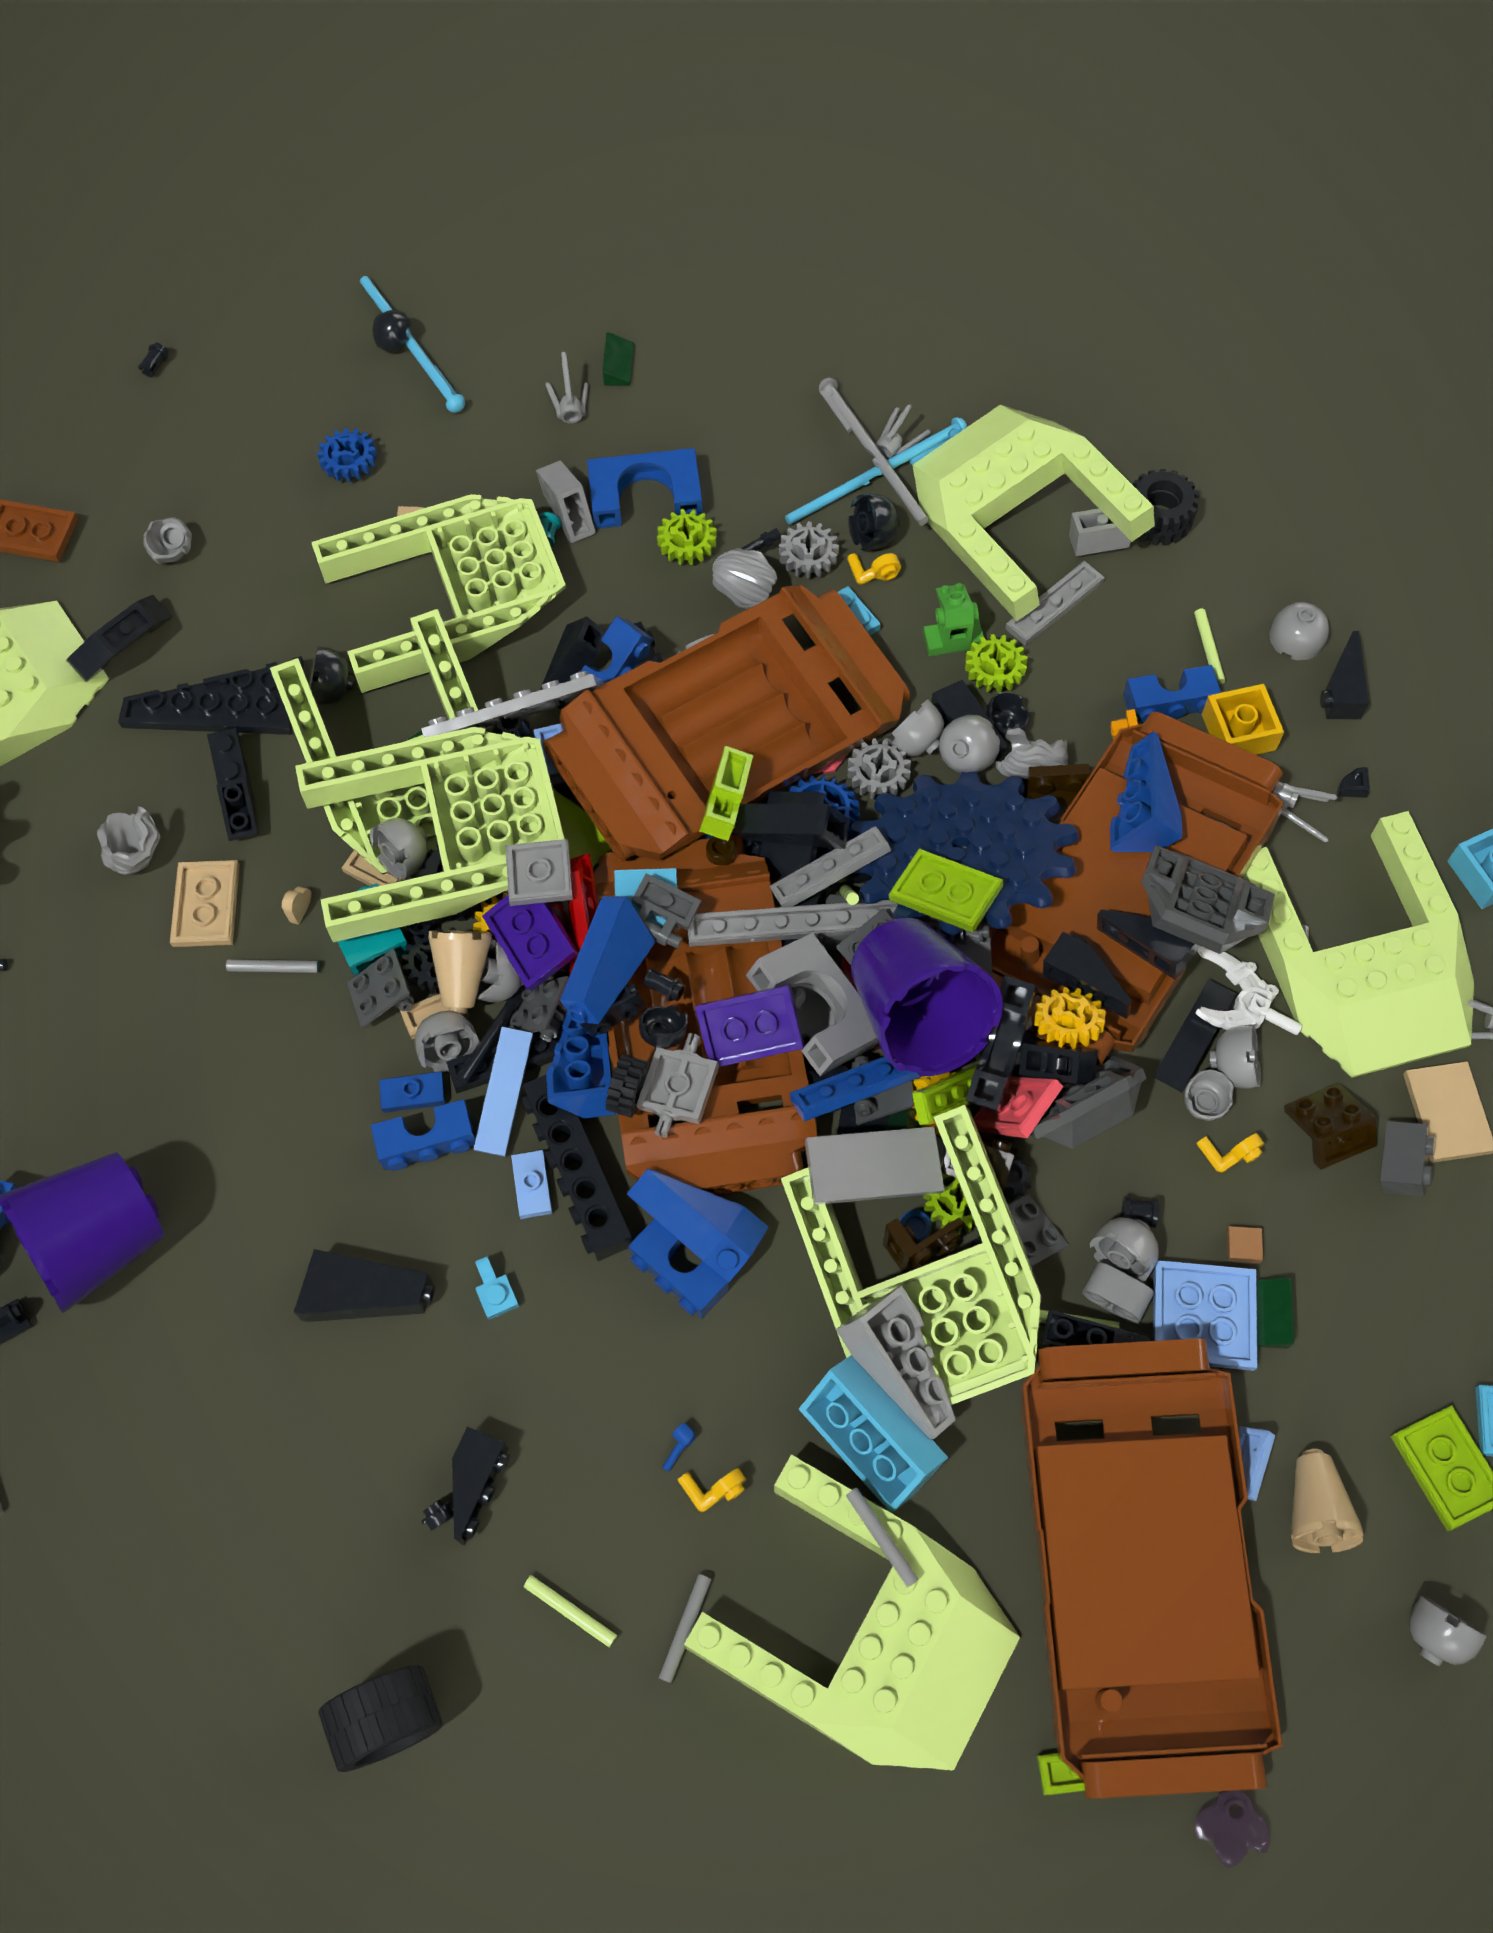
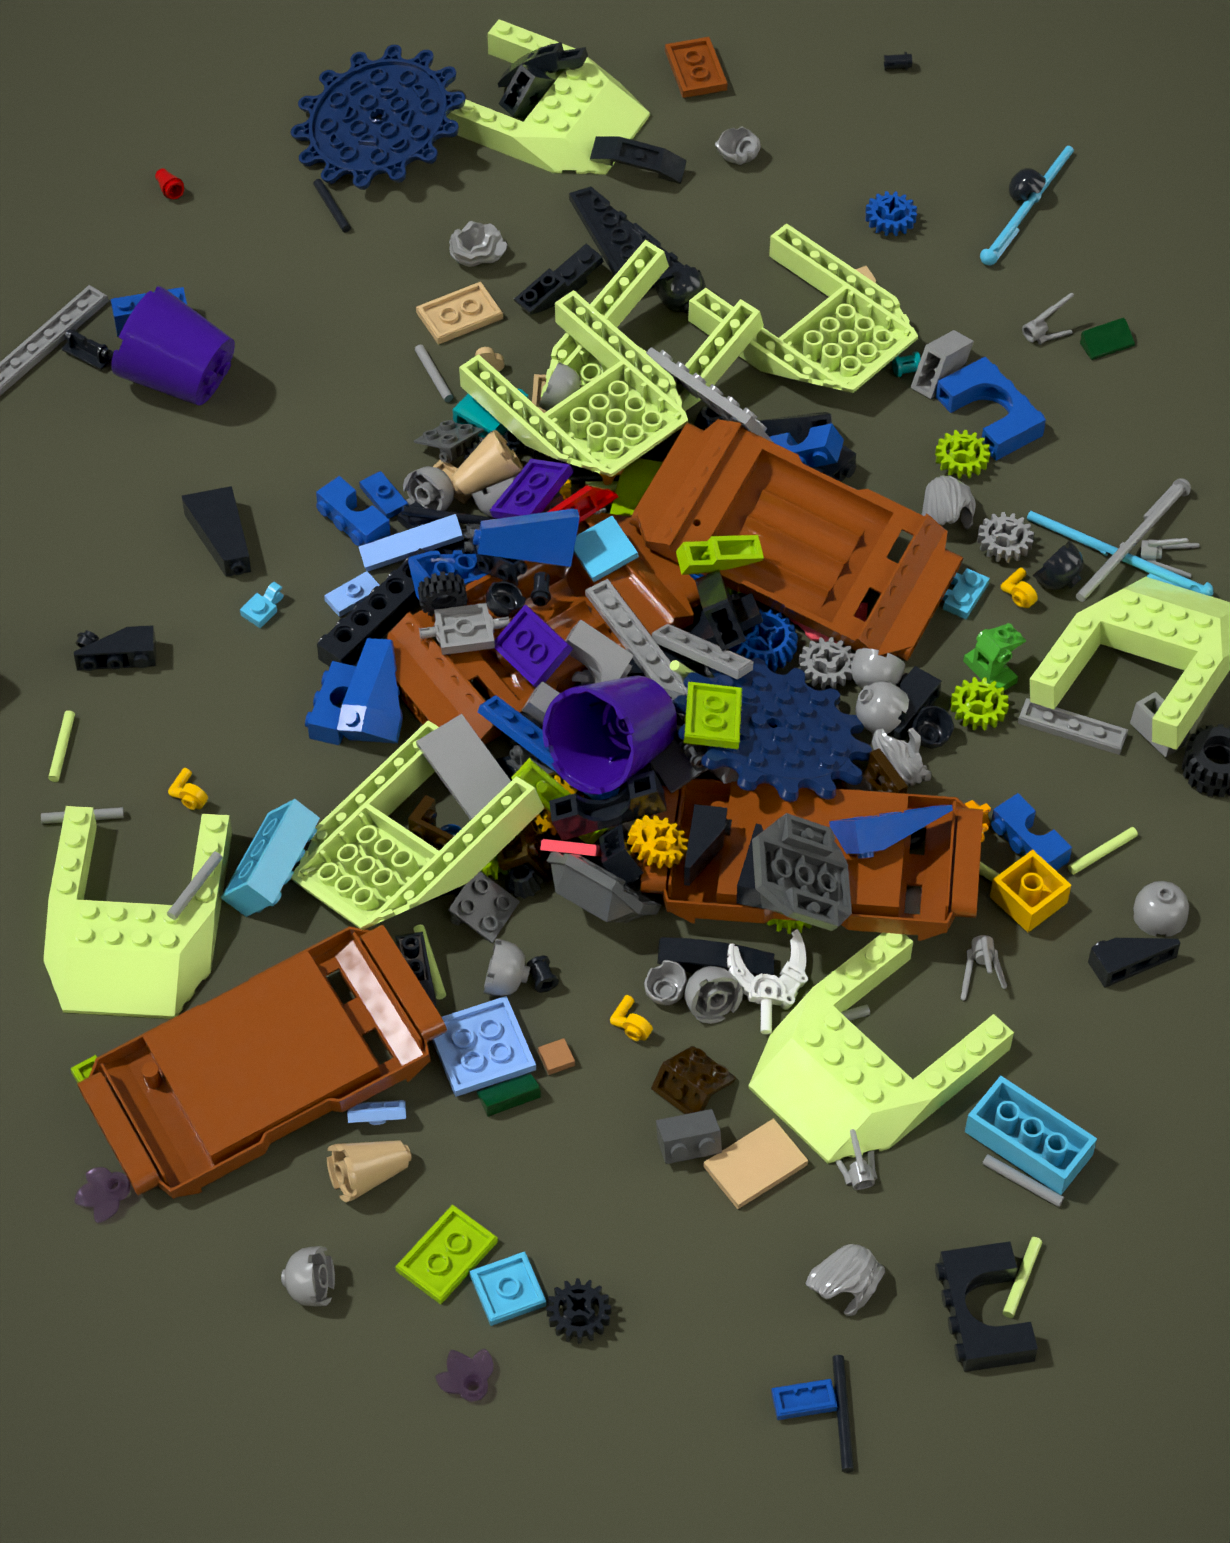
camera: 60 degrees right, 10 degrees down
(539, 872) = (575, 465): light grey plate -> none
(668, 903) = (603, 557): dark grey plate -> none
(685, 1437) = (214, 761): blue hand -> none
(720, 851) = (679, 583): dark brown tile -> none
(766, 539) = (995, 506): black piece -> none
(893, 1352) = (332, 841): light grey wedge -> none
(1118, 1292) = (467, 982): light grey beam -> none
(1355, 784) = (1032, 1001): black tile -> none

